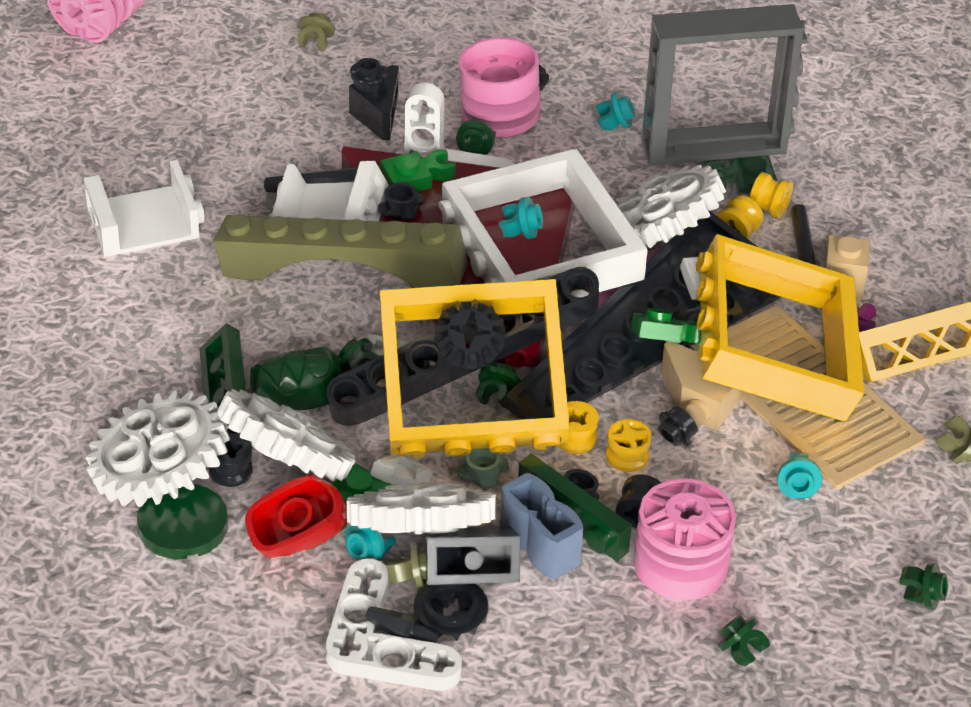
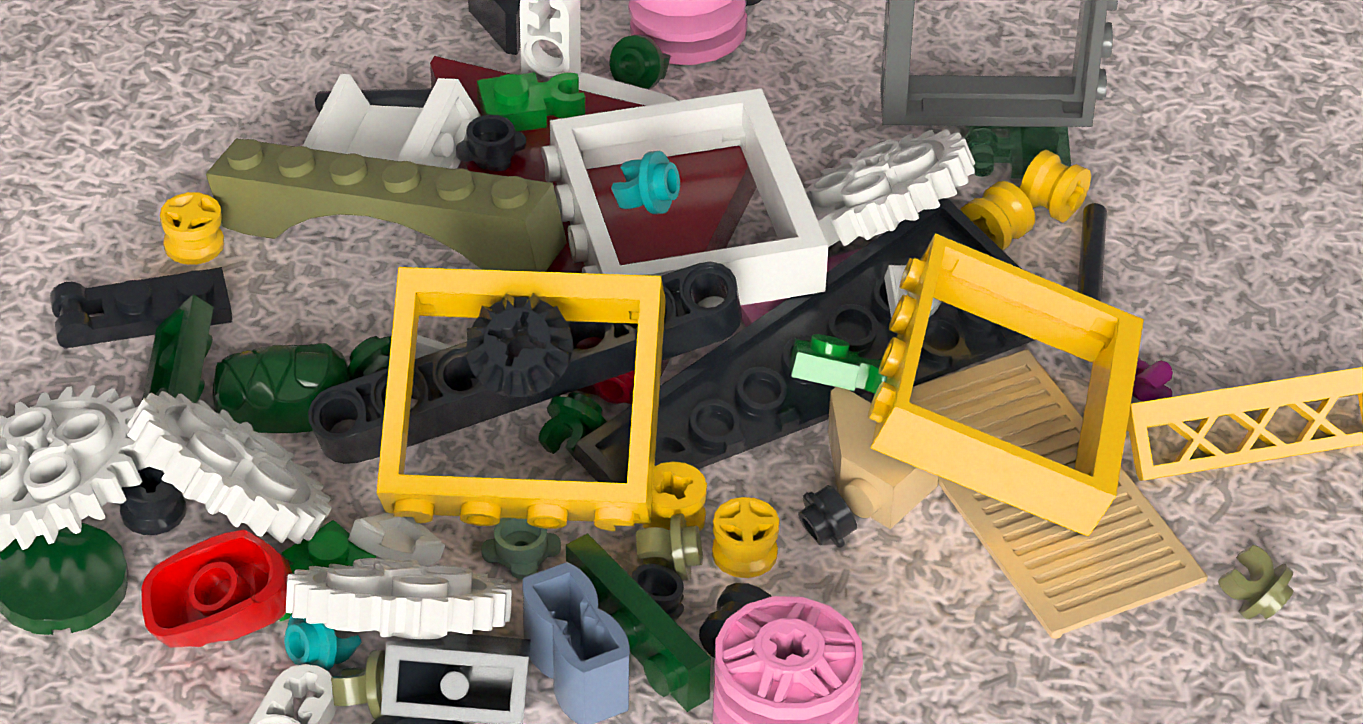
camera: 10 degrees right, 0 degrees up
(146, 216) = (130, 132): white panel -> none
(179, 335) = (132, 306): none -> black plate
(206, 278) = (192, 228): none -> yellow wheel
(582, 457) = (671, 548): none -> olive plate
(616, 112) = (855, 43): teal plate -> none
(799, 476) = (993, 612): plate -> none
(849, 257) = (1148, 291): tan slope -> none

